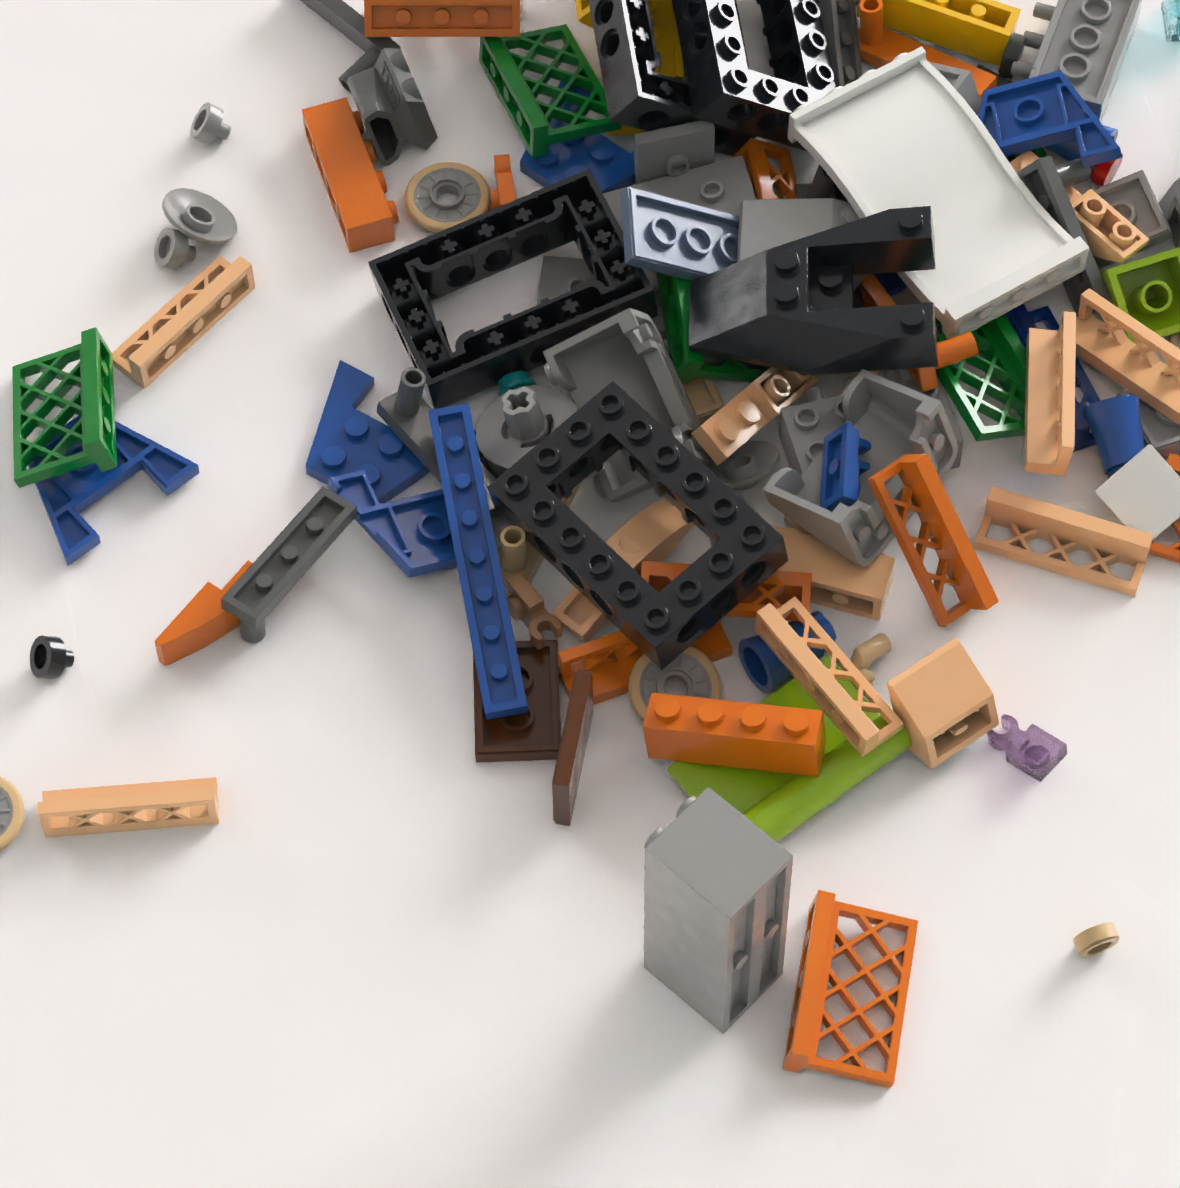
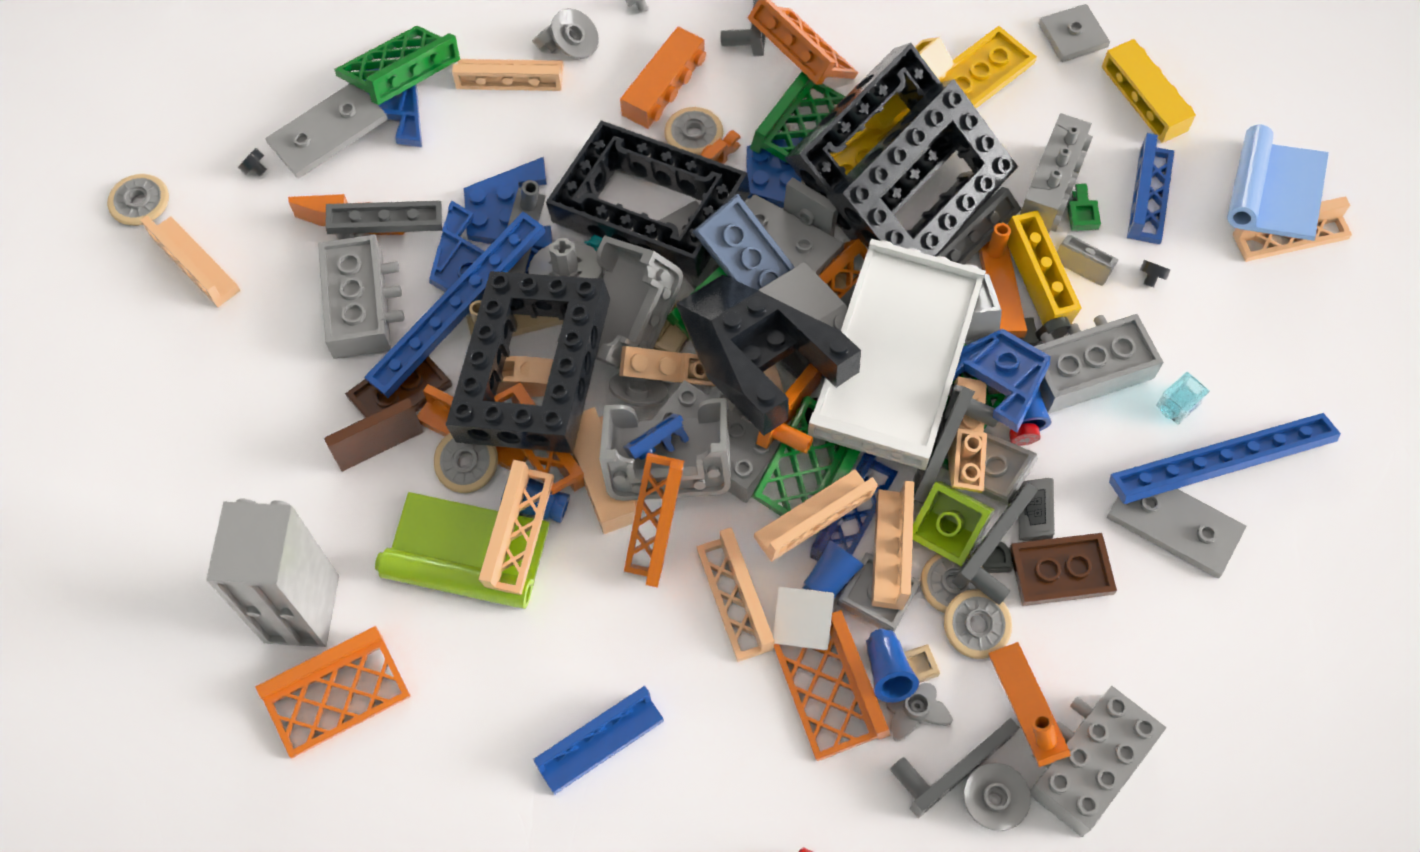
camera: 50 degrees right, 5 degrees up
(87, 547) = (326, 129): none -> light grey plate
(361, 658) = (356, 296): none -> light grey piece
(391, 106) = (718, 62): dark grey piece -> none
(528, 606) = (456, 349): medium nougat plate -> none
(735, 734) = (443, 509): orange brick -> none
(868, 652) = (562, 542): tan arm -> none
(943, 703) = (554, 605): light nougat slope -> none
(1028, 750) = (574, 677): clear purple plate -> none
(1096, 939) = (468, 806): tan tile -> none
(1123, 774) = (598, 740): none -> blue fence

